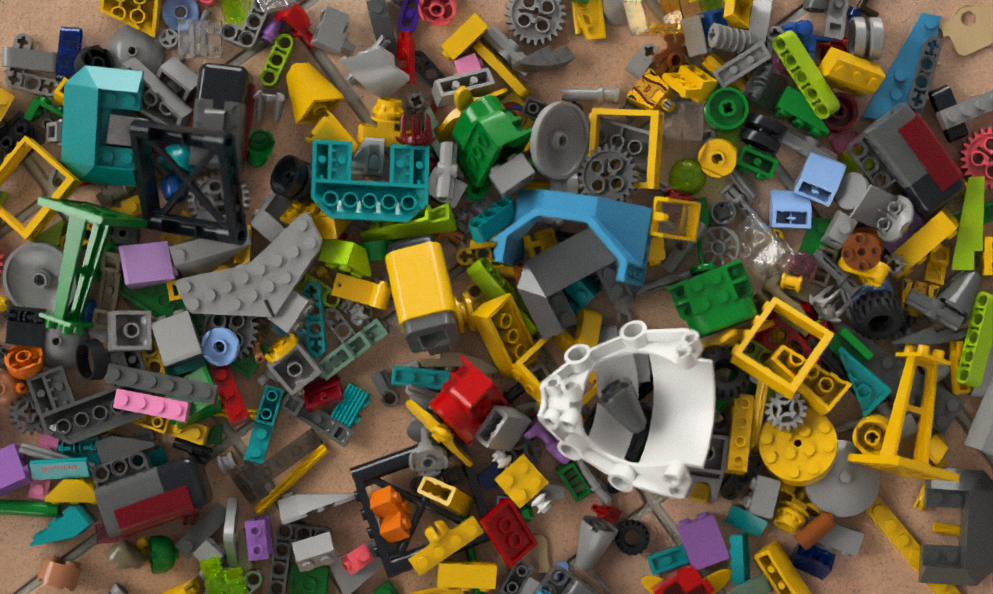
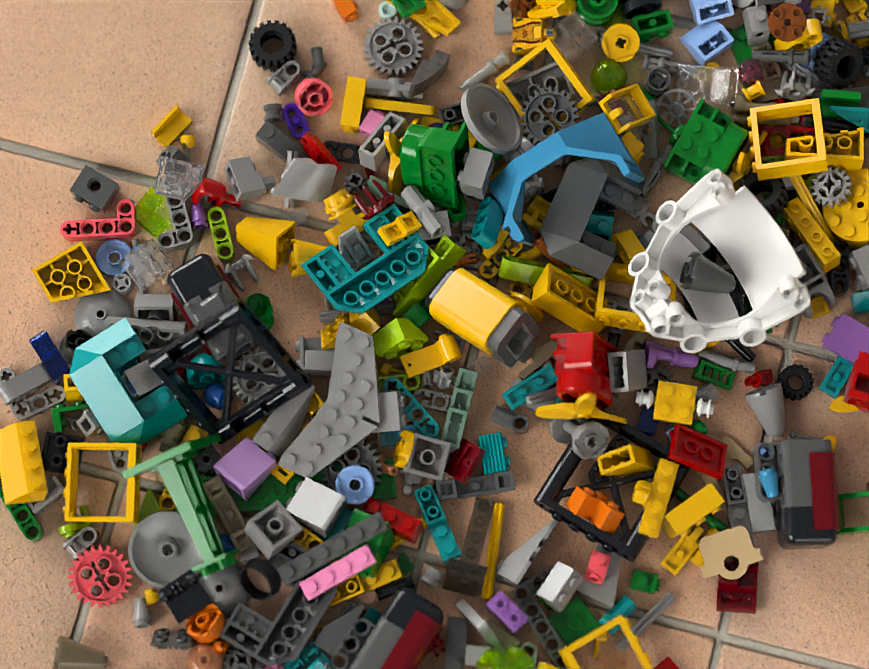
camera: 35 degrees left, 10 degrees down
(292, 179) = (308, 311): black wheel -> none
(415, 171) = (399, 229): none -> yellow slope

